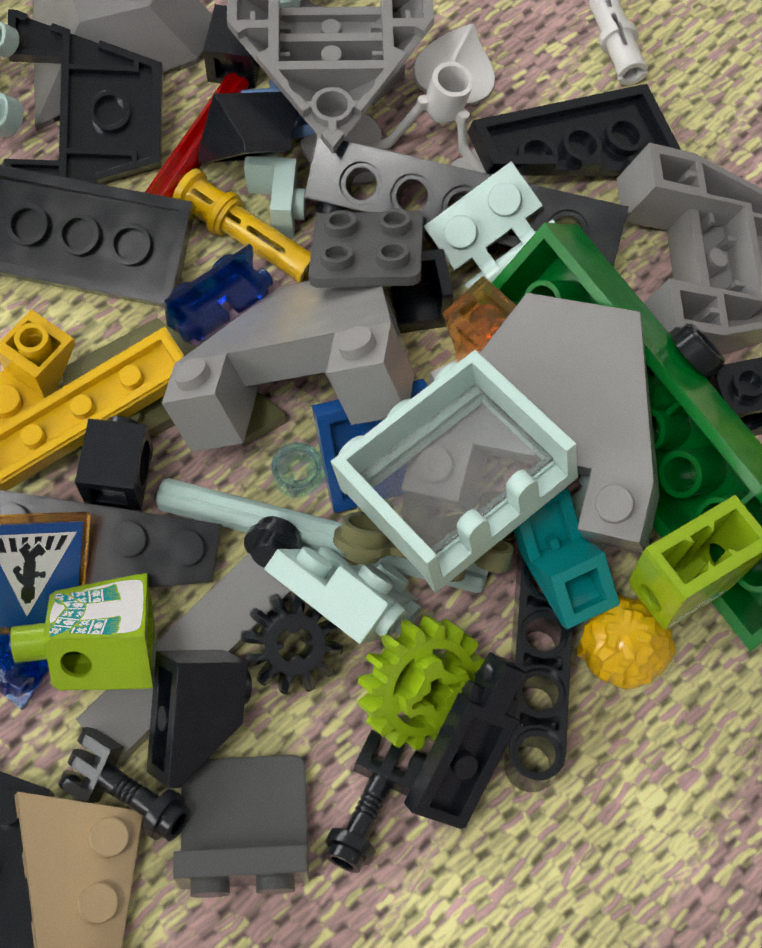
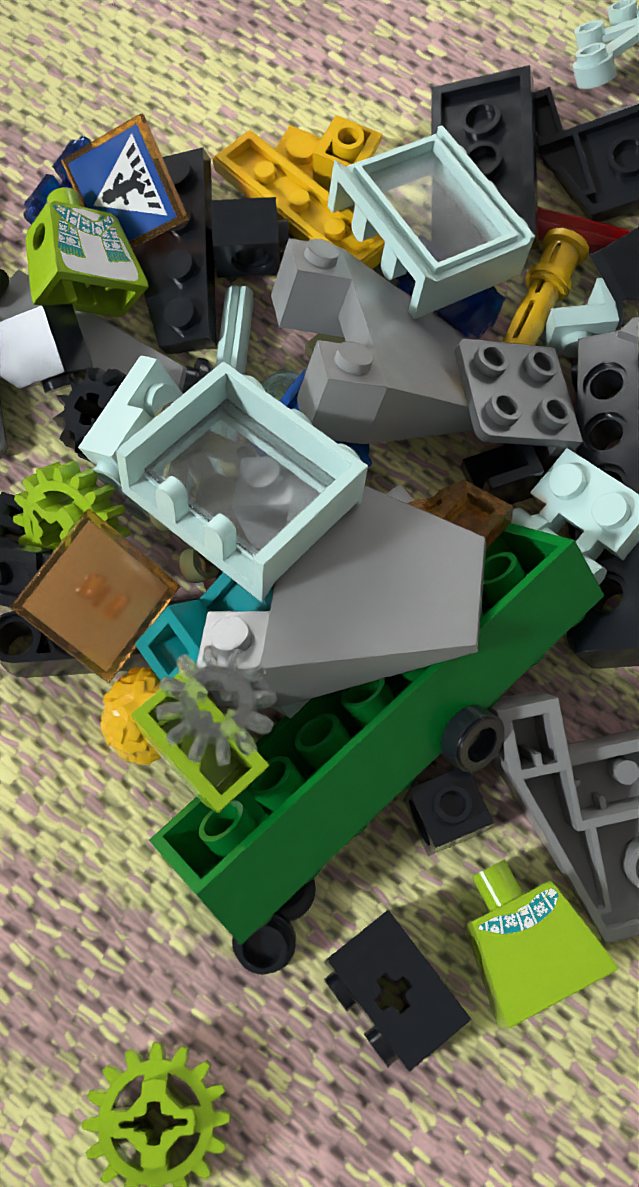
camera: 80 degrees right, 5 degrees up
(157, 273) = (435, 220): none -> light aqua window
(523, 649) = (96, 596): none -> clear orange piece
(696, 513) = (231, 687): none -> clear gear

